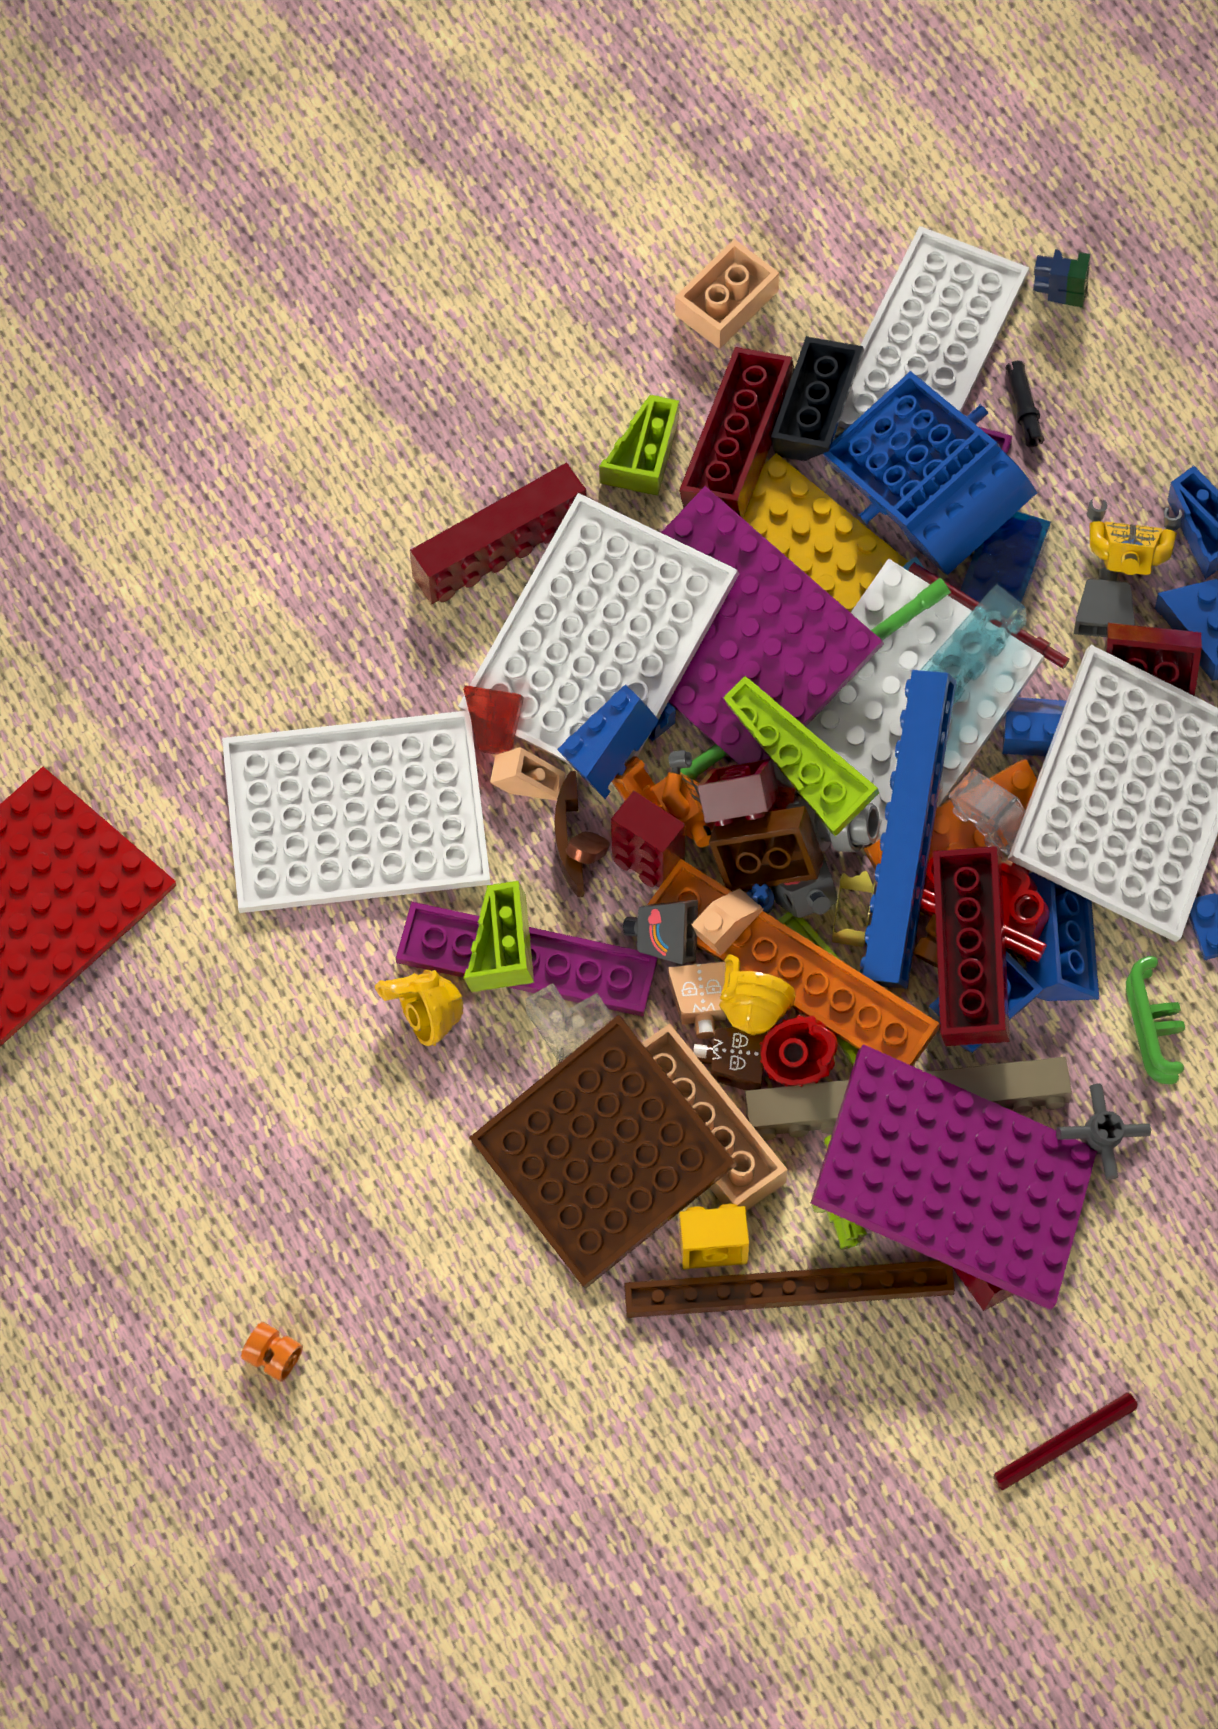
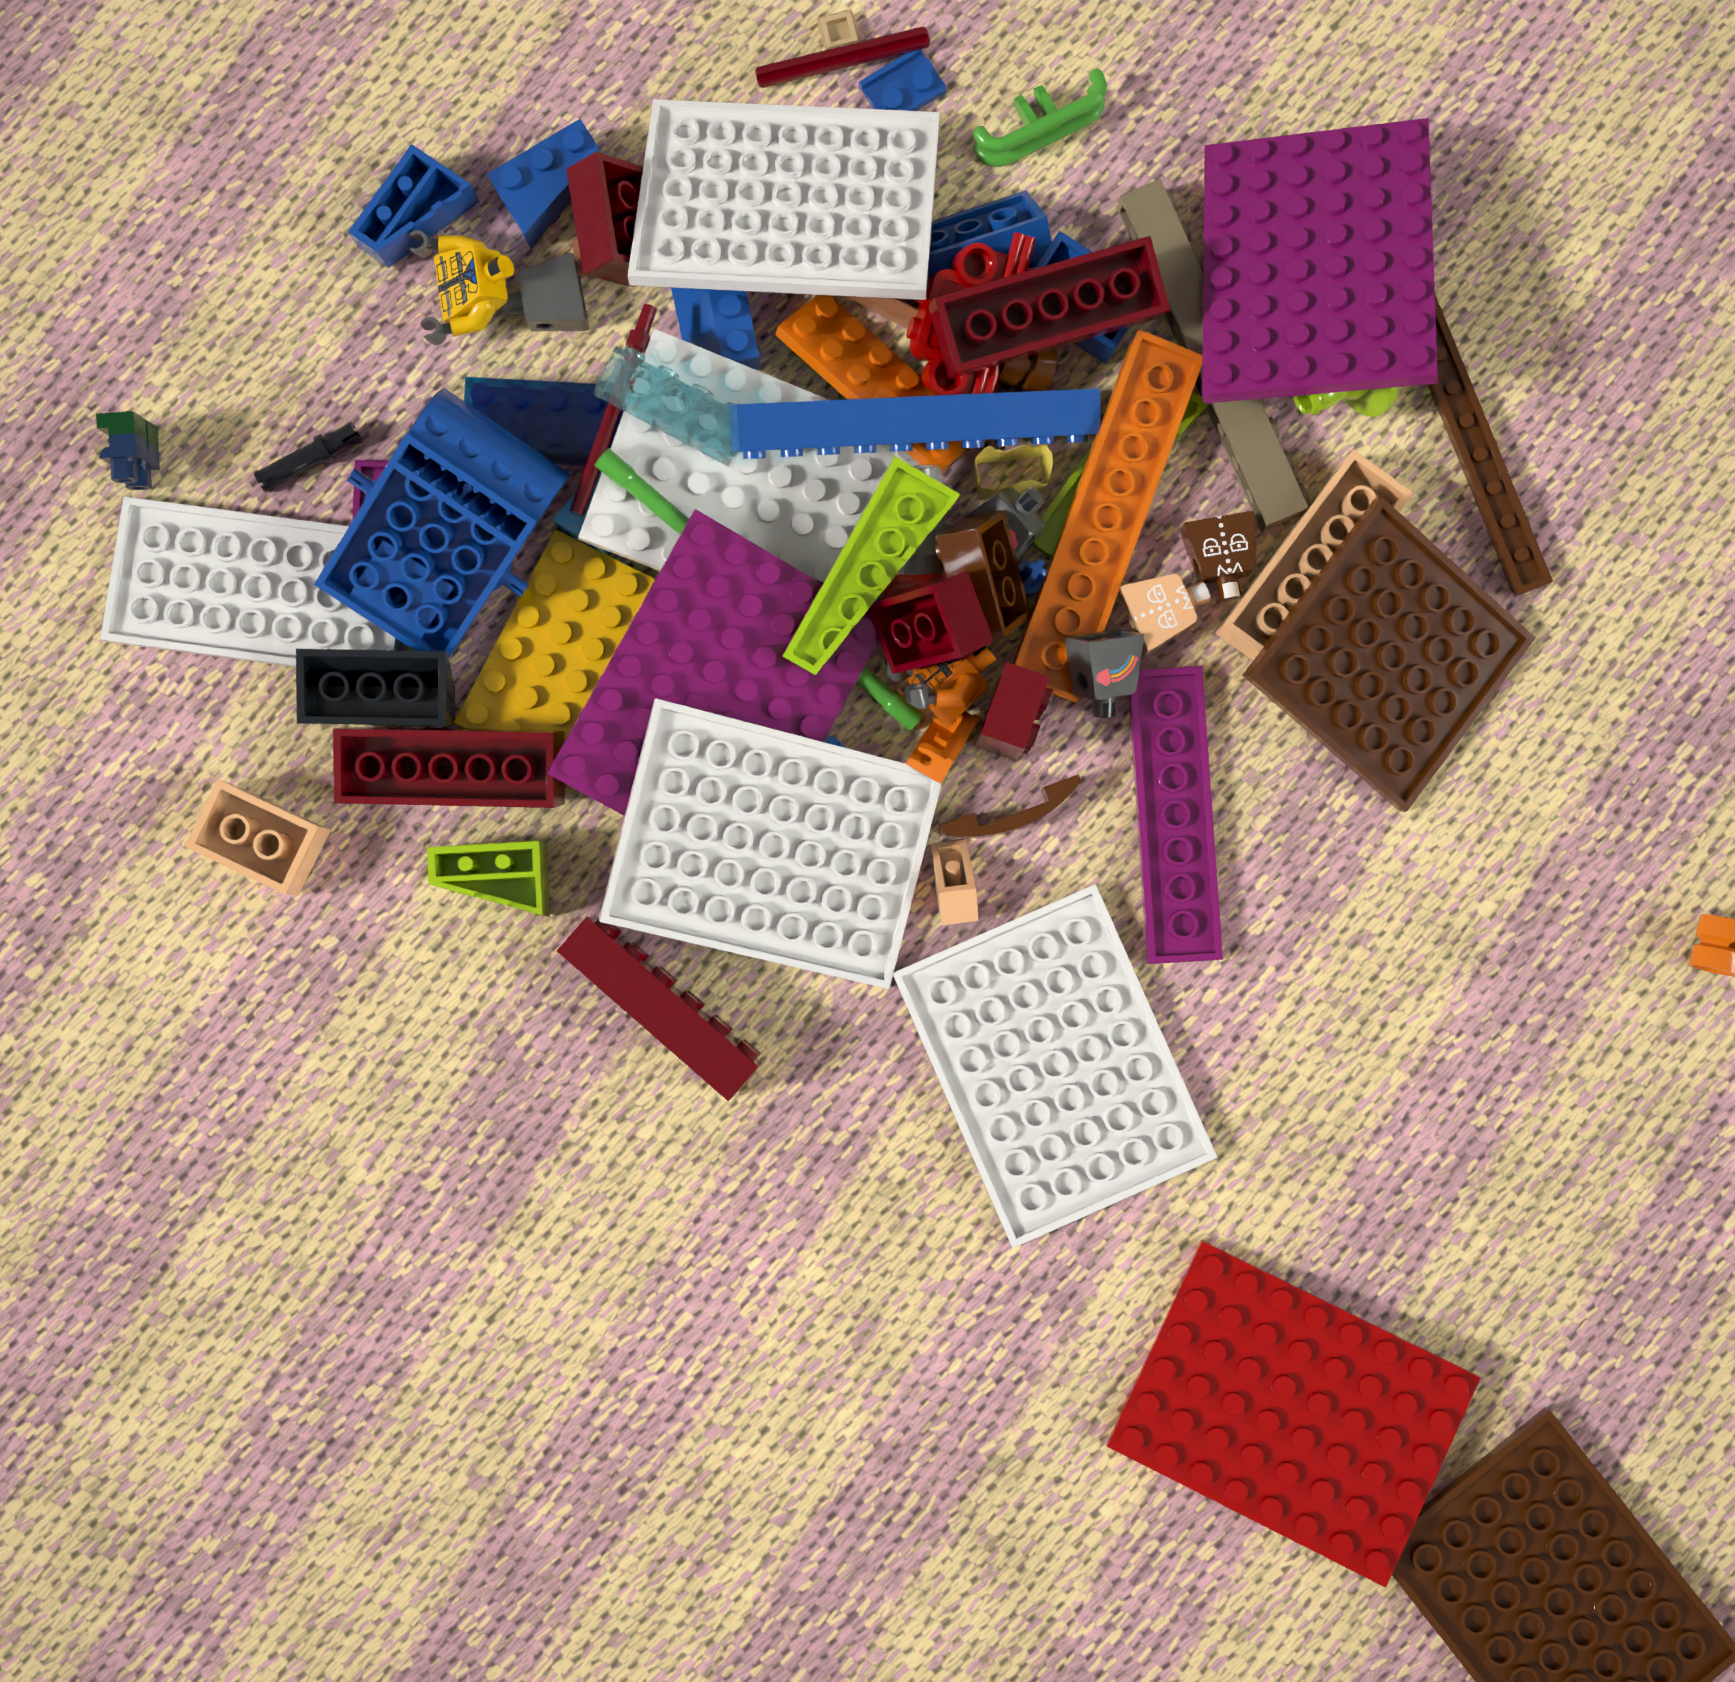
camera: 105 degrees left, 20 degrees up
(427, 1002) = (1267, 903): yellow head -> none
(493, 718) = (898, 941): clear red wing -> none
(502, 943) = (1181, 839): lime wedge -> none
(565, 1027) = (1253, 742): clear brick -> none
(587, 847) = (1028, 784): copper tile -> none
(609, 738) = (909, 791): blue wedge -> none
(713, 1236) = (1449, 507): yellow brick -> none
(726, 920) = (1079, 598): light nougat slope -> none
(753, 998) = (1177, 538): yellow head -> none
(798, 1051) = (1211, 473): red head -> none
(990, 807) = (864, 341): clear brick -> none
(1065, 1441) = (1535, 98): dark red axle -> none
(1109, 1137) = (1191, 138): dark grey bar -> none

